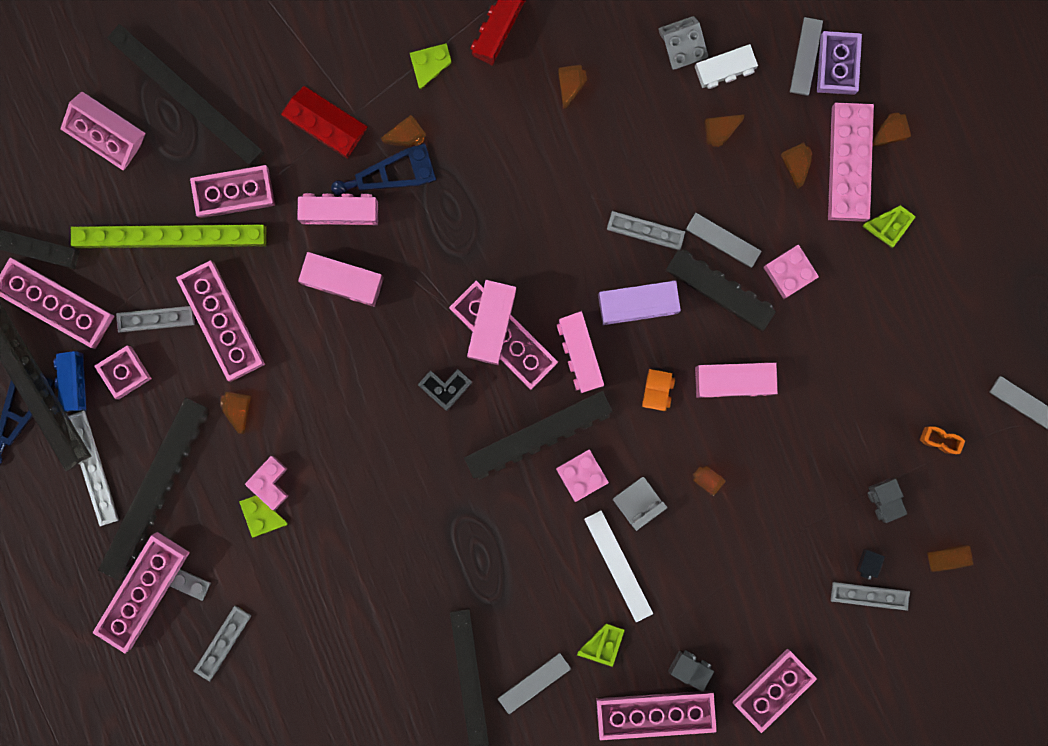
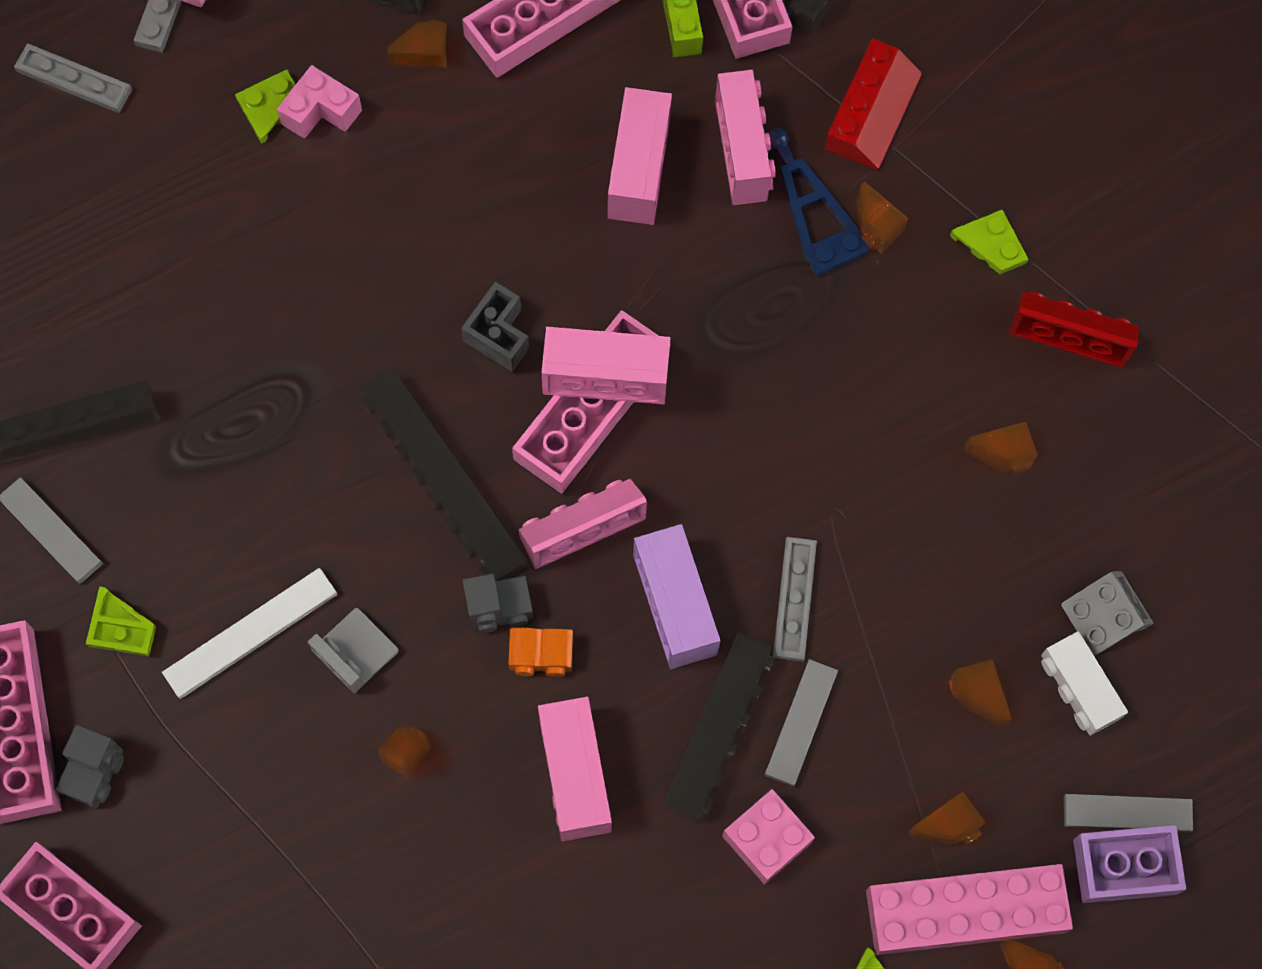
camera: 80 degrees right, 15 degrees down
(582, 475) = (387, 552): bright pink brick -> none
(624, 411) = (497, 602): none -> dark grey brick

